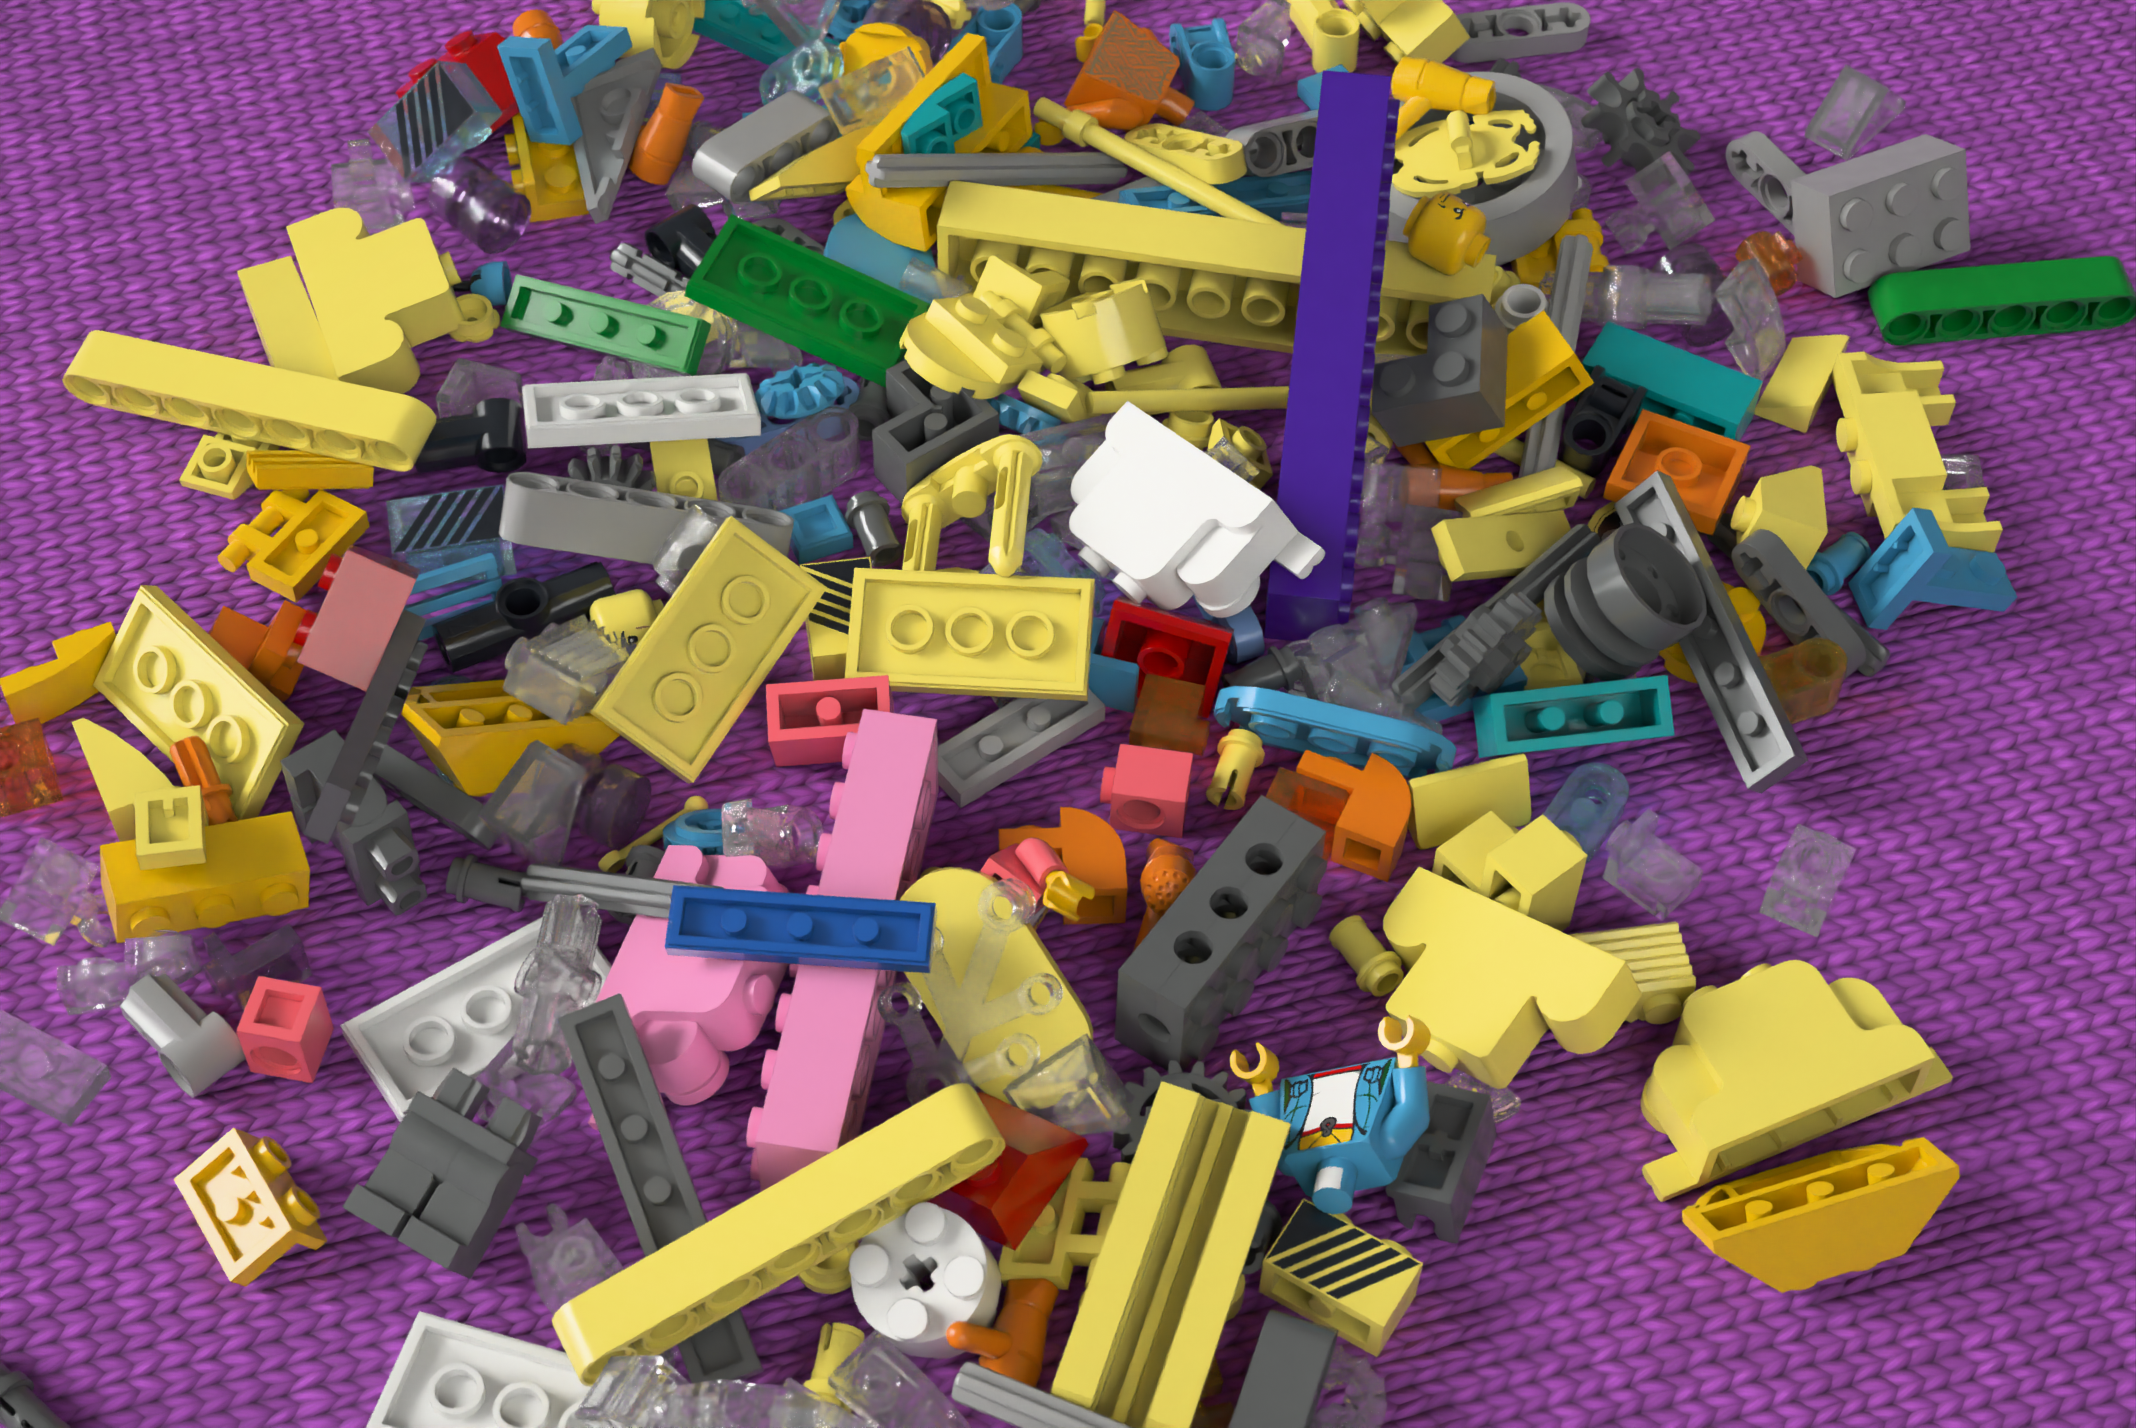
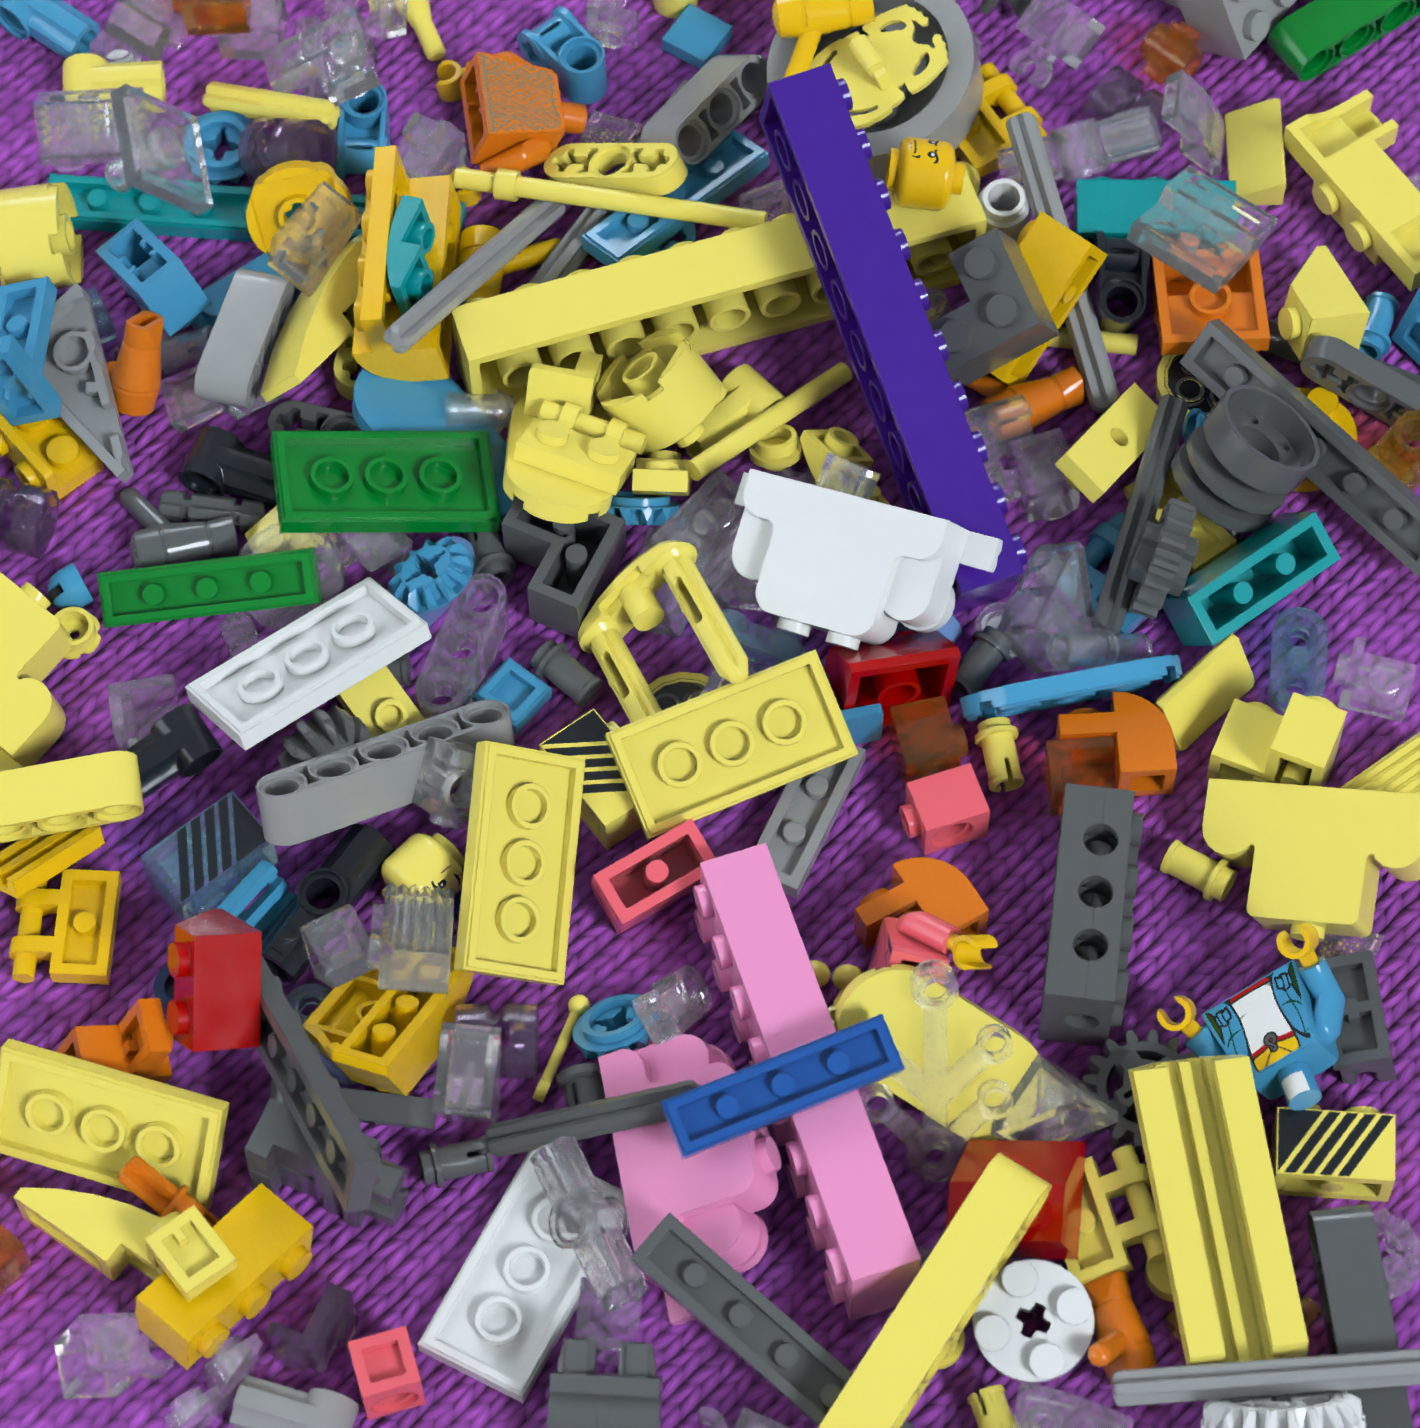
camera: 25 degrees left, 10 degrees up
(493, 641) = (337, 946): none -> clear slope
(603, 278) = (175, 542): none -> dark grey piece
(724, 75) = (153, 276): none -> dark azure brick
(802, 70) = (219, 249): clear light blue plate -> none
(1032, 71) = (431, 147): none -> clear brick
(1163, 880) = (1022, 894): orange piece -> none
(1538, 492) = (1096, 391): light yellow slope -> none
(1702, 402) = (1202, 229): none -> clear slope

